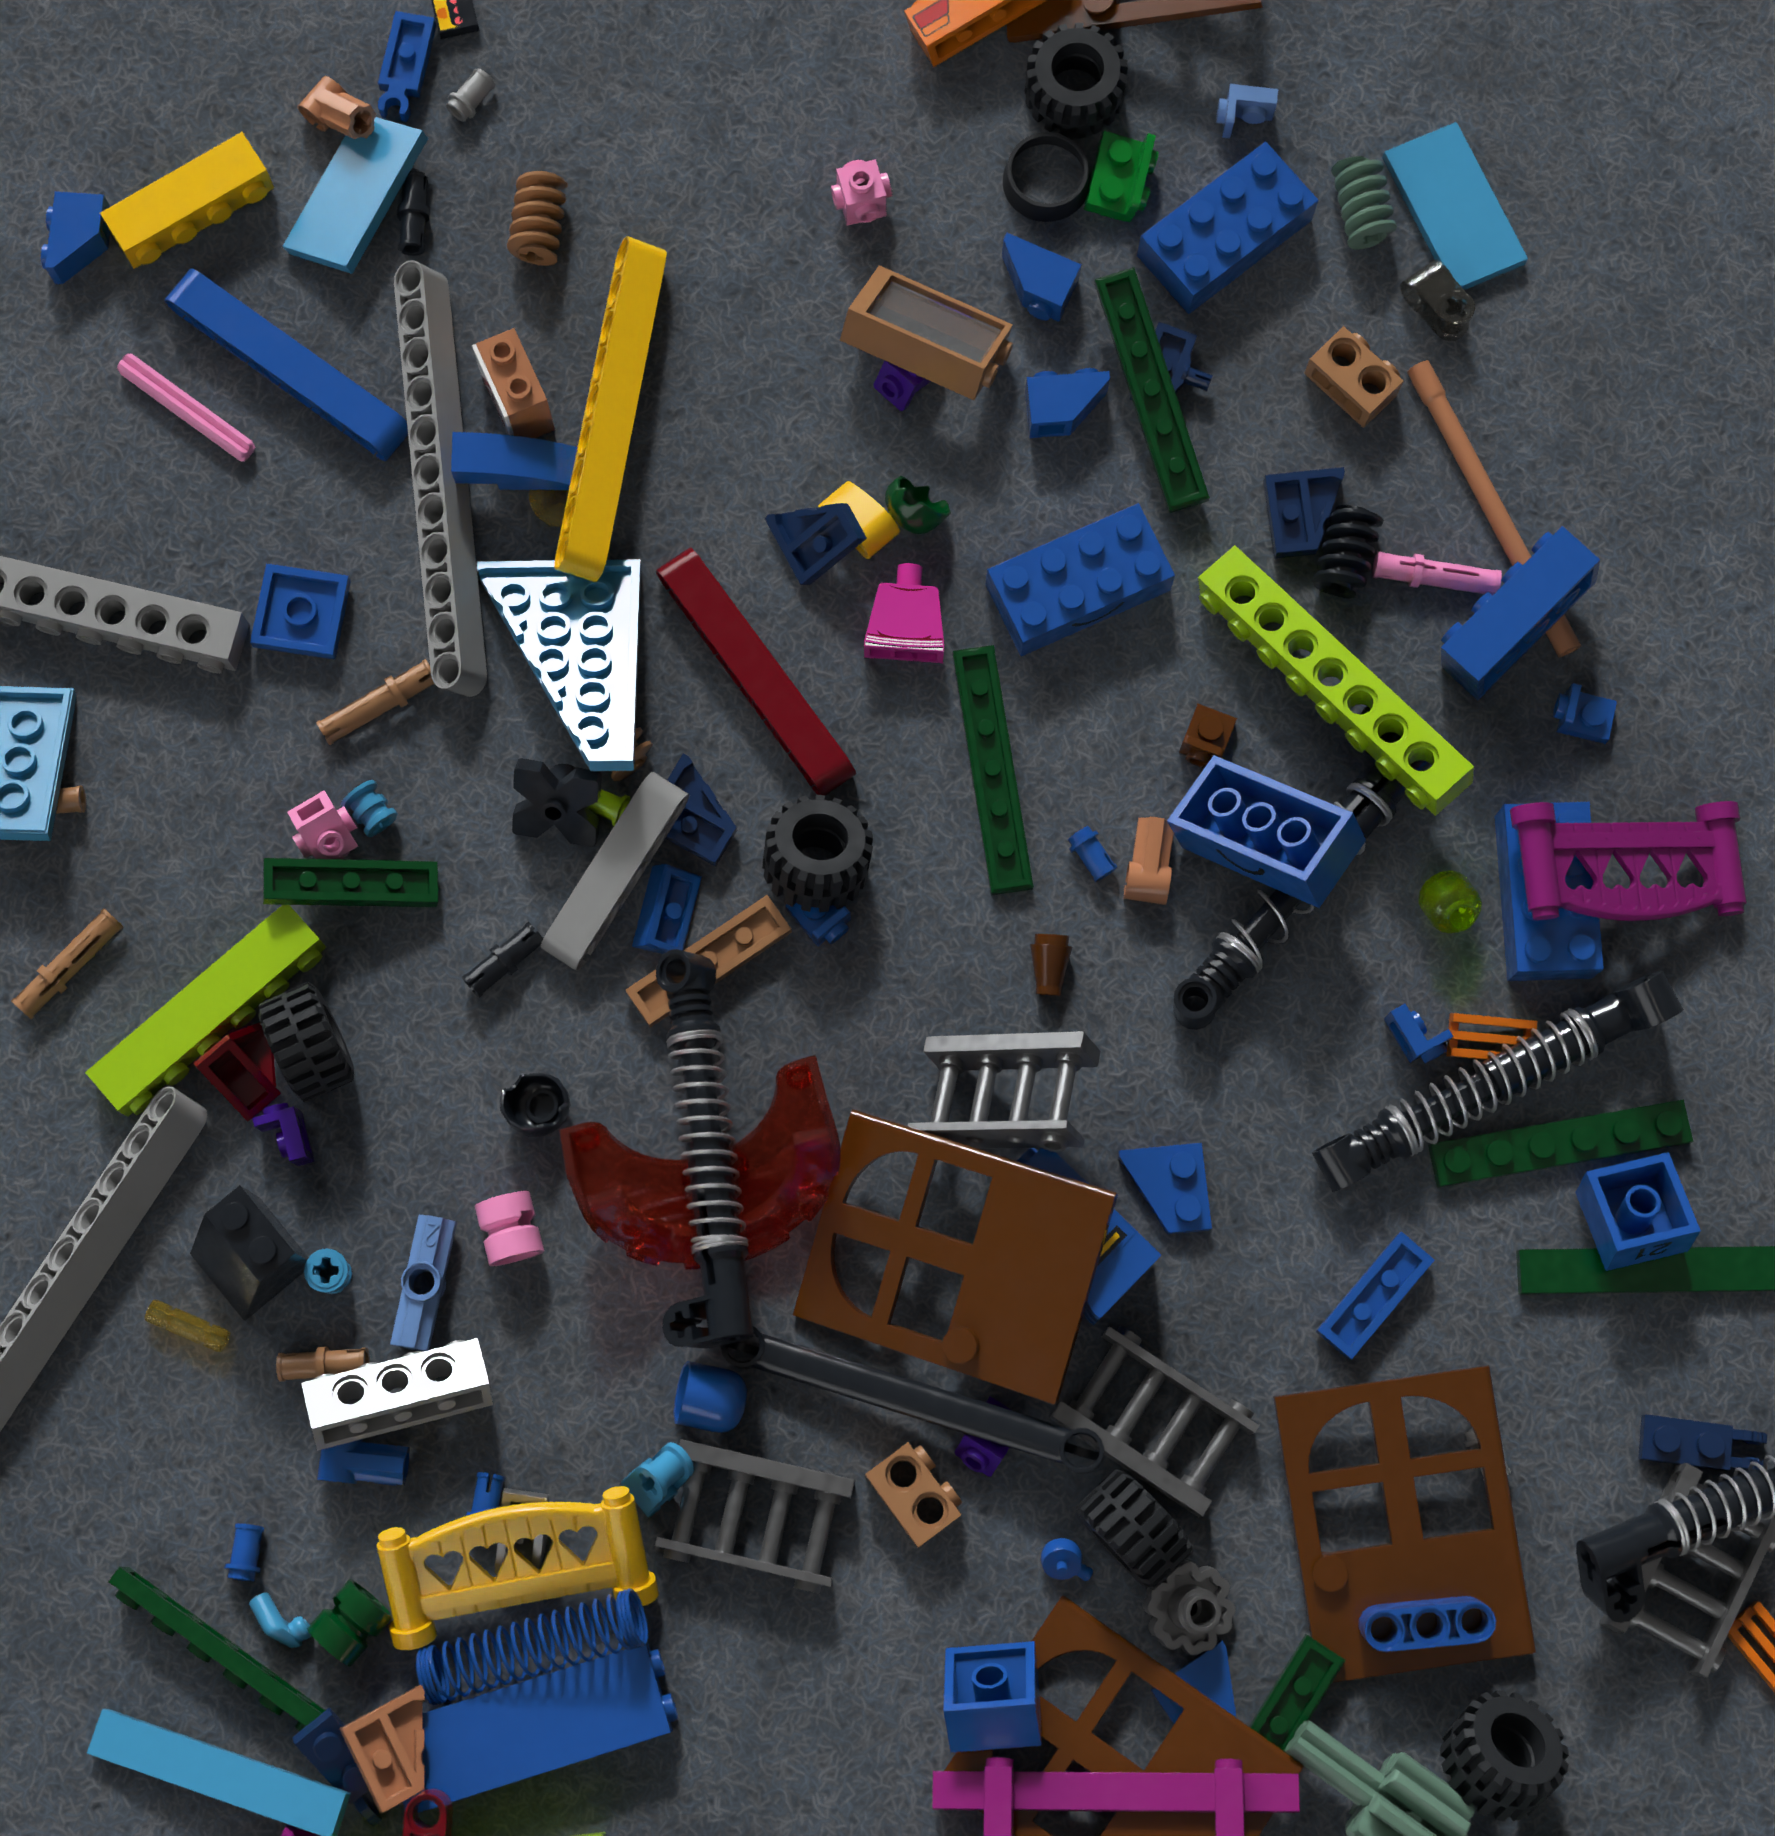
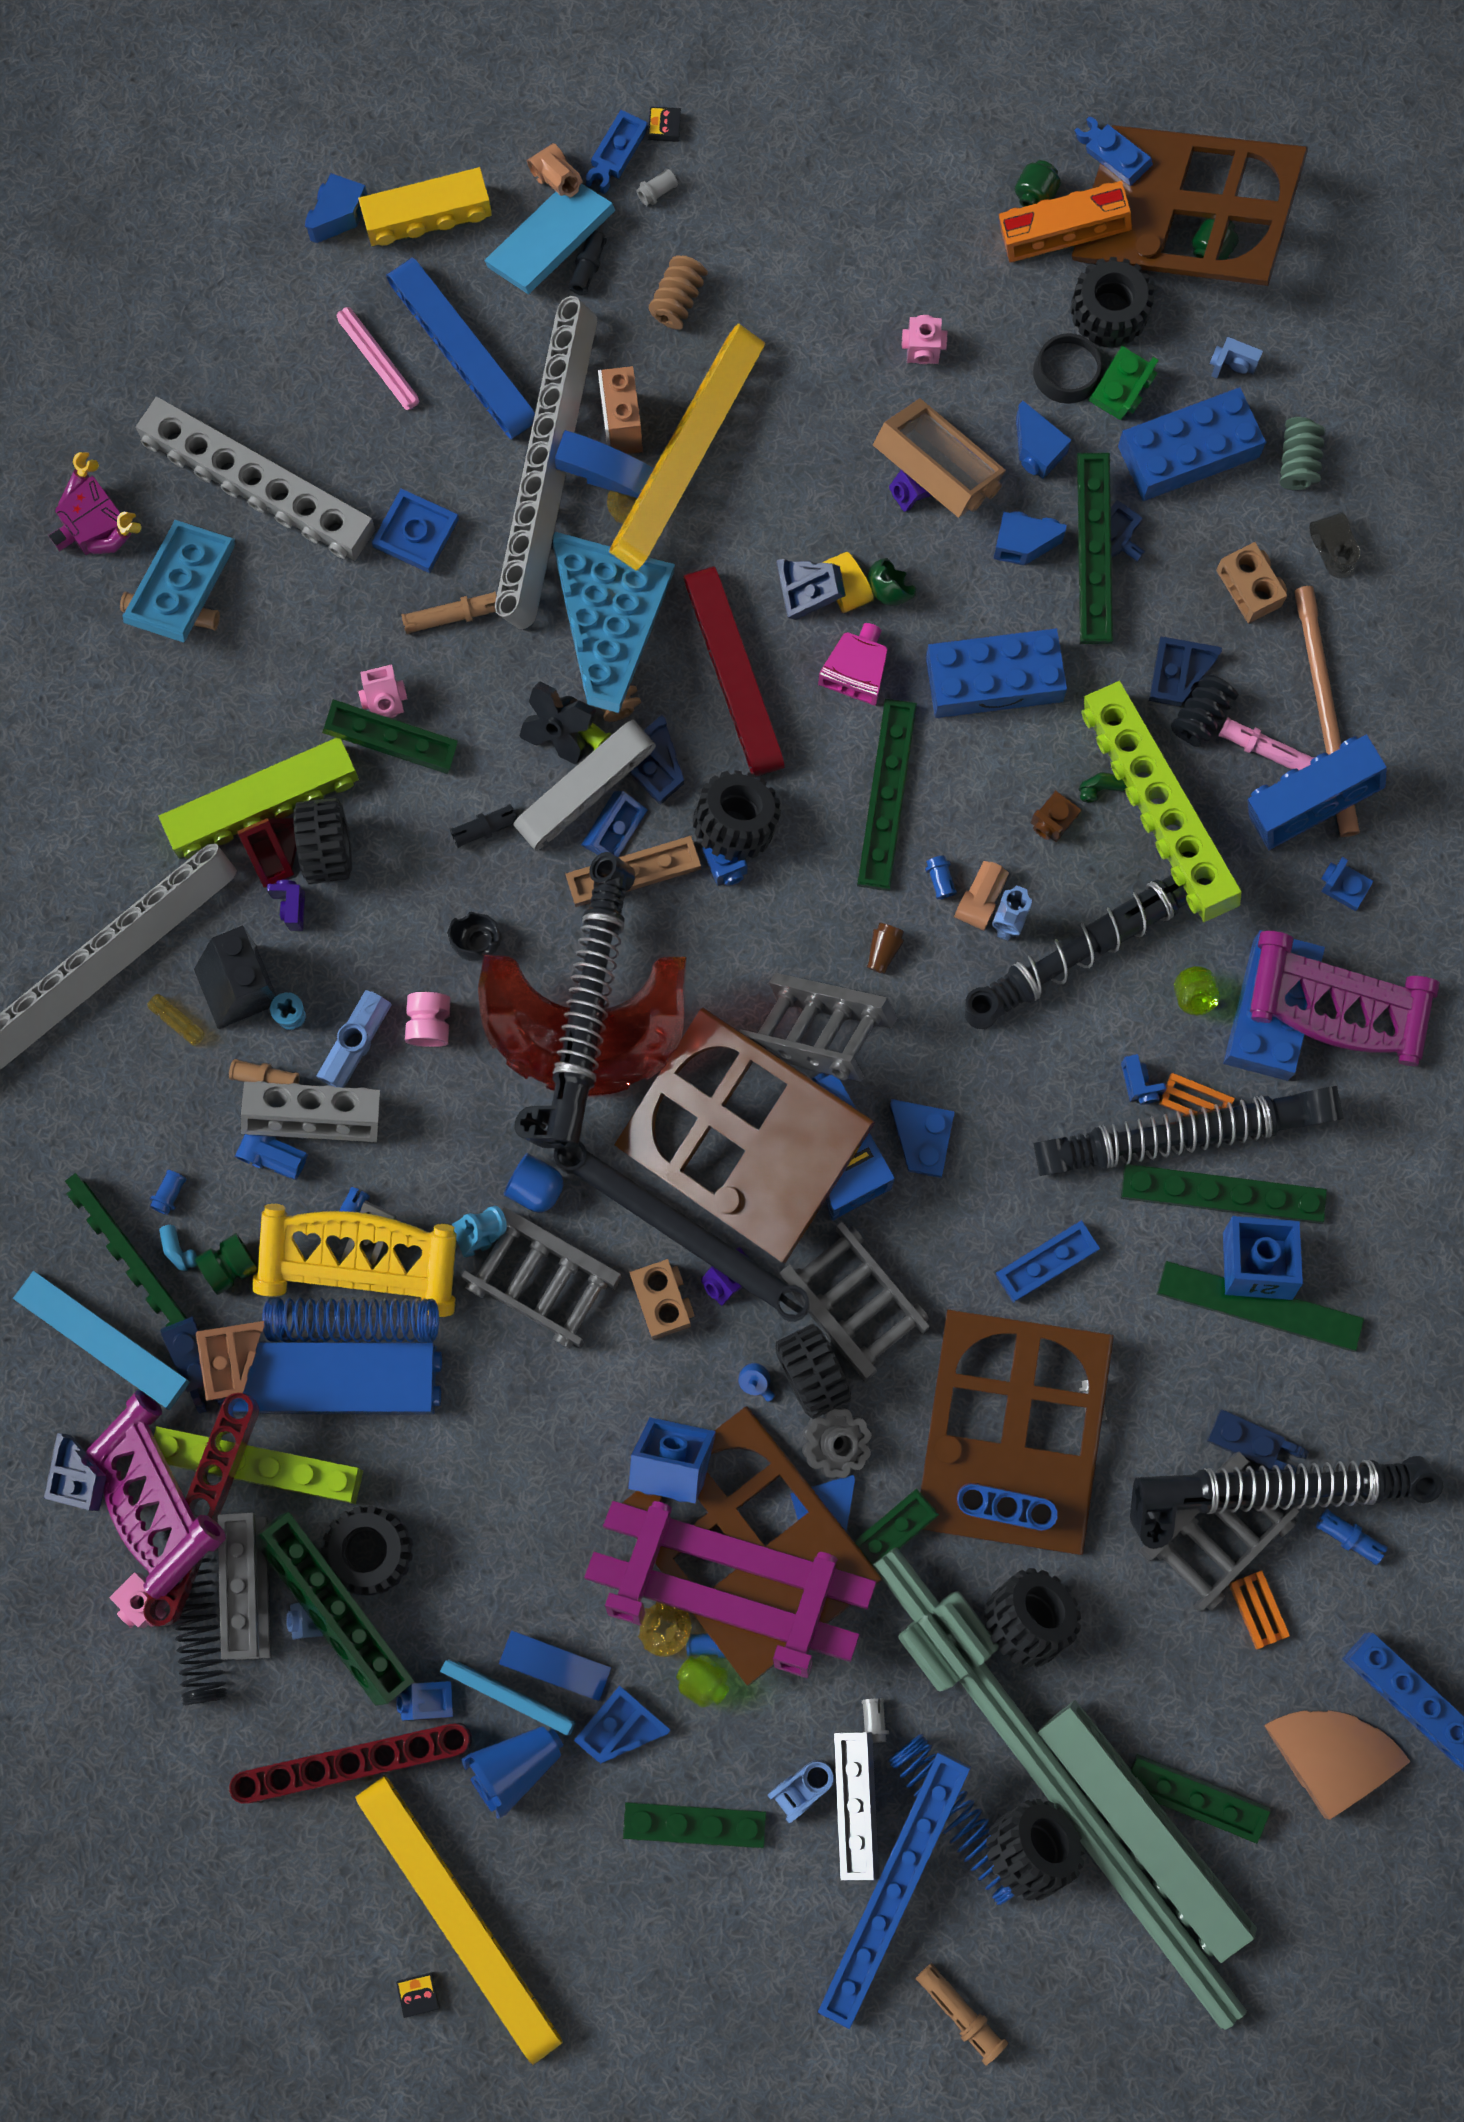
camera: 20 degrees right, 0 degrees up
(66, 964) = (169, 735): medium nougat pin -> none
(369, 808) = (421, 687): dark azure bush -> none
(1198, 874) = (1012, 913): none -> medium blue piece
(1246, 678) = (1097, 783): none -> dark green arm
(1267, 831) = (1075, 896): blue brick -> none
(1455, 206) = (1371, 478): dark azure tile -> none

